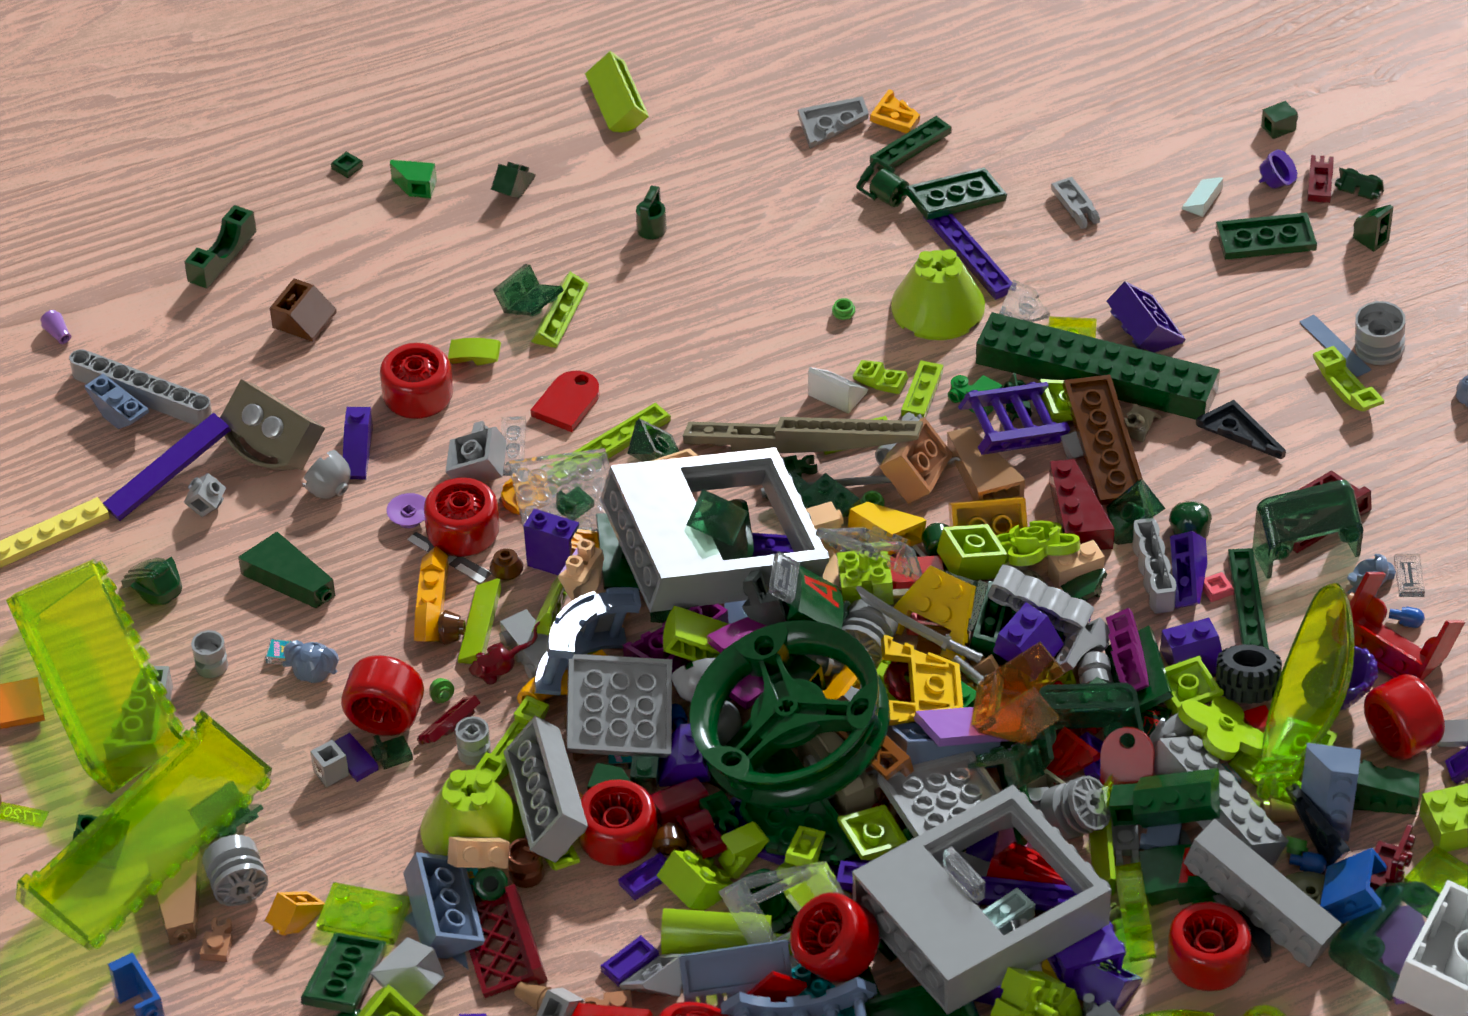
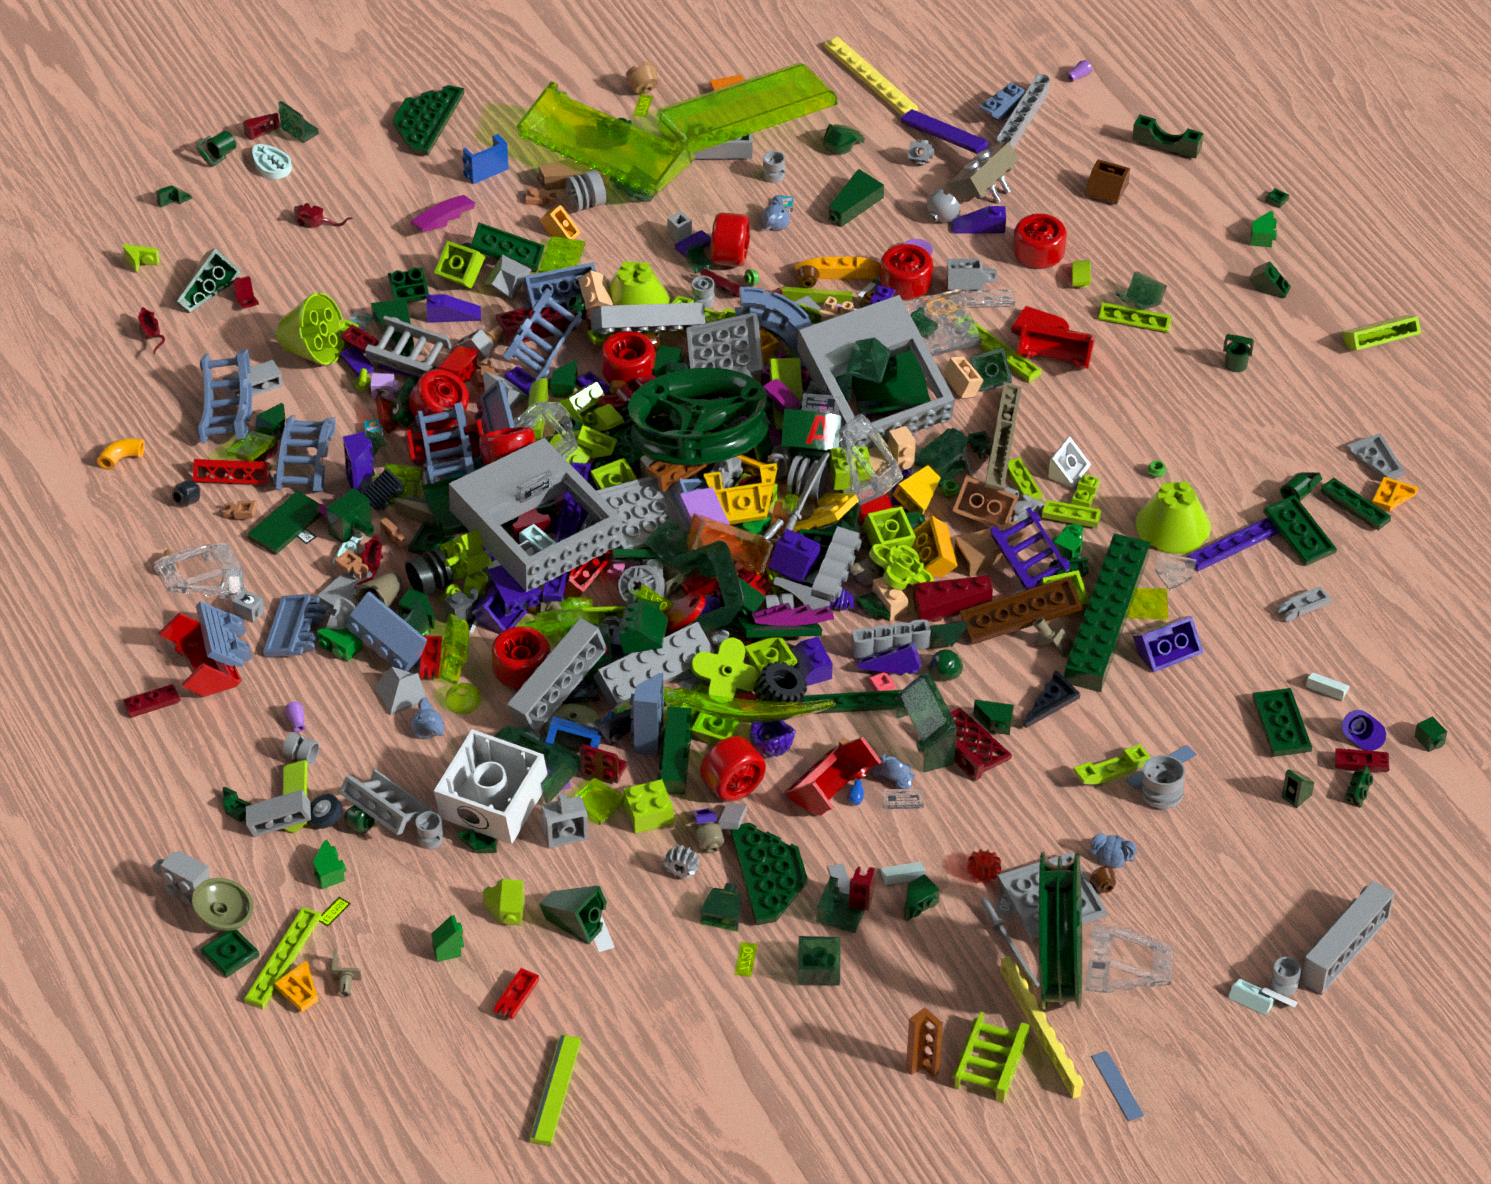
camera: 85 degrees right, 0 degrees up
(578, 931) = (524, 330): none -> sand blue fence
(615, 368) = (1056, 343): none -> red windscreen
(639, 904) = (564, 380): none -> dark green slope
(1276, 476) = (994, 716): none -> dark green slope

